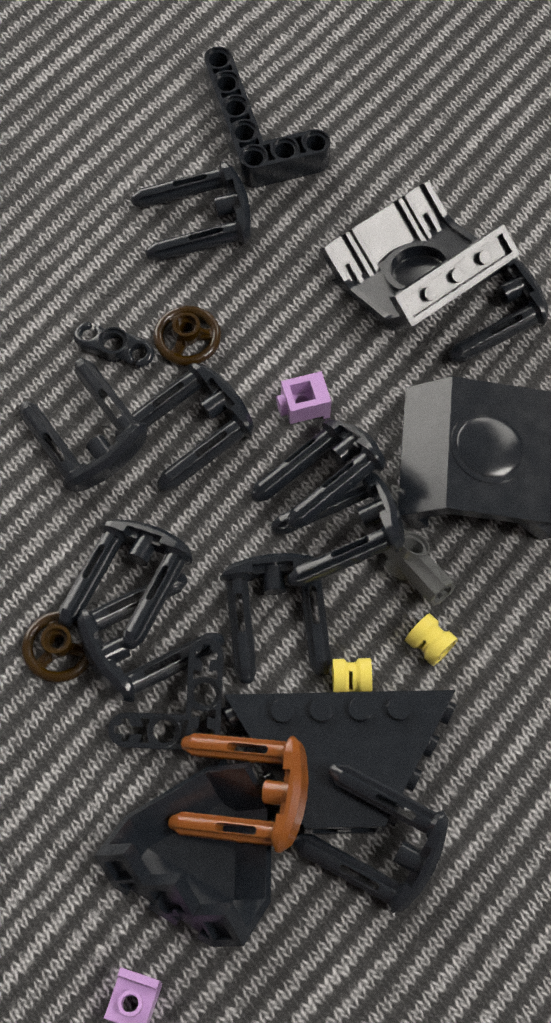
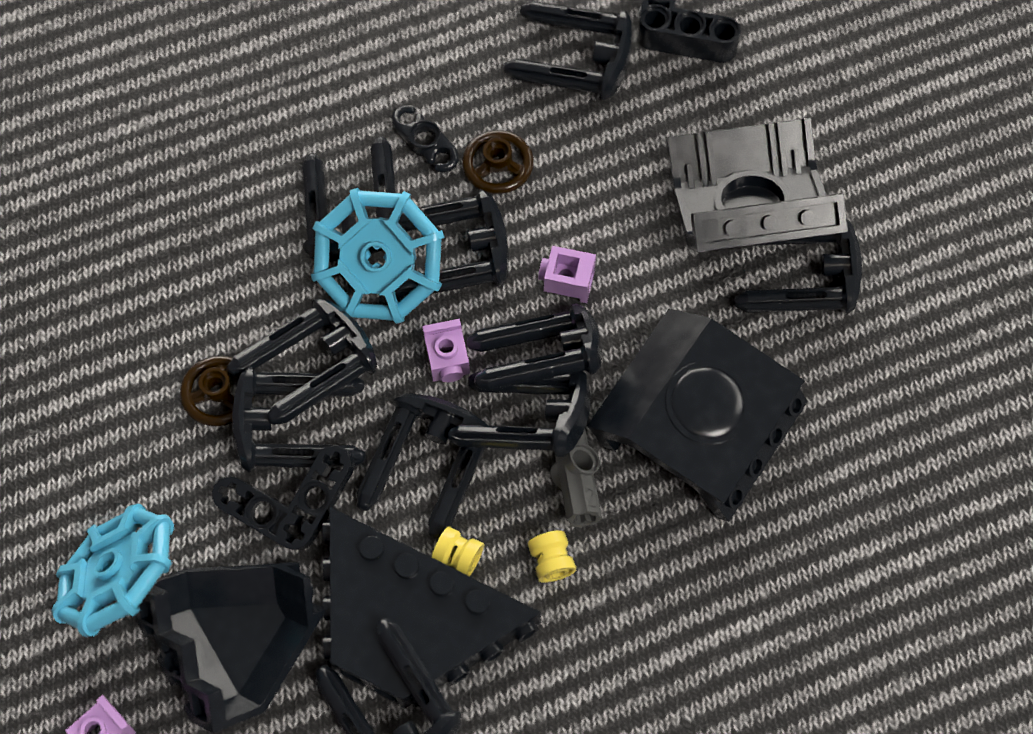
camera: 30 degrees right, 0 degrees up
(46, 829) = (113, 567): none -> medium azure plate
(130, 441) = (383, 234): none -> medium azure plate
(240, 525) = (445, 337): none -> lavender brick
(288, 794) = (329, 624): dark orange piece -> none

